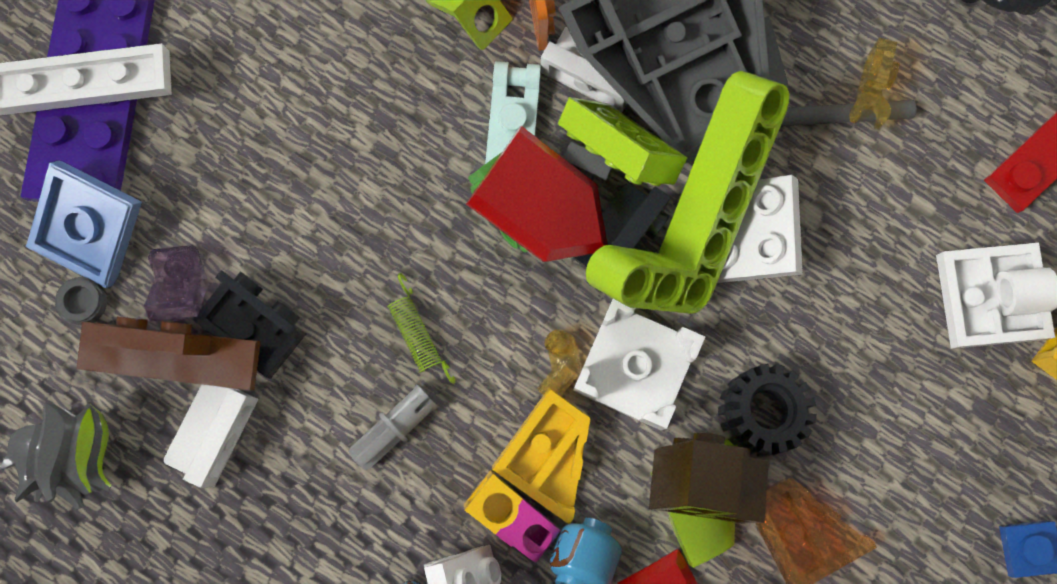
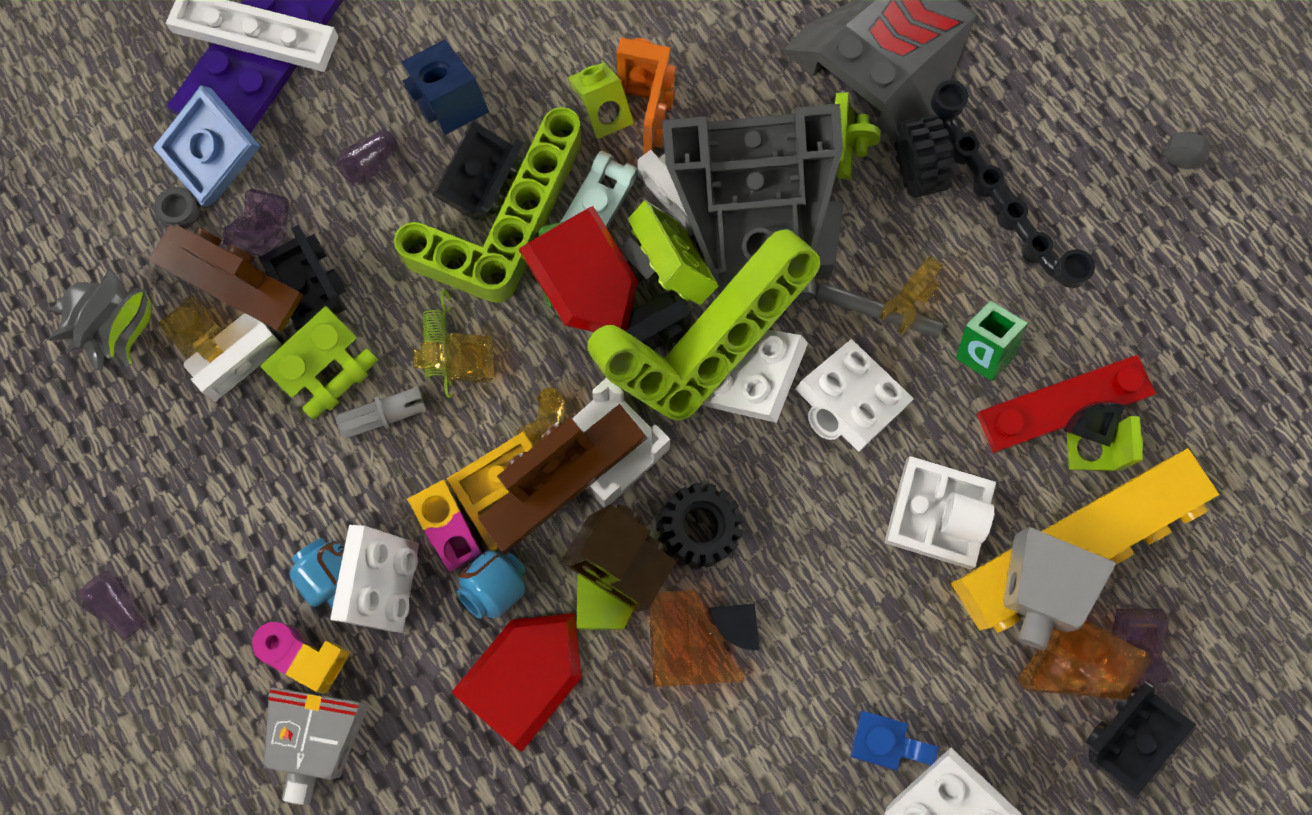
camera: 15 degrees right, 5 degrees down
(159, 423) = (193, 330): none -> clear yellow plate
(255, 168) = (365, 158): none -> clear purple cone
(292, 397) = (309, 353): none -> lime plate
(306, 61) = (443, 87): none -> dark blue brick
(380, 135) = (478, 172): none -> black bracket
(438, 172) = (510, 222): none -> lime beam
(451, 335) = (463, 355): none -> clear yellow plate
(609, 420) = (556, 473): none -> reddish brown bracket
(844, 492) = (737, 625): none -> black tile
(861, 215) = (852, 396): none -> white plate
(976, 100) = (991, 340): none -> green brick

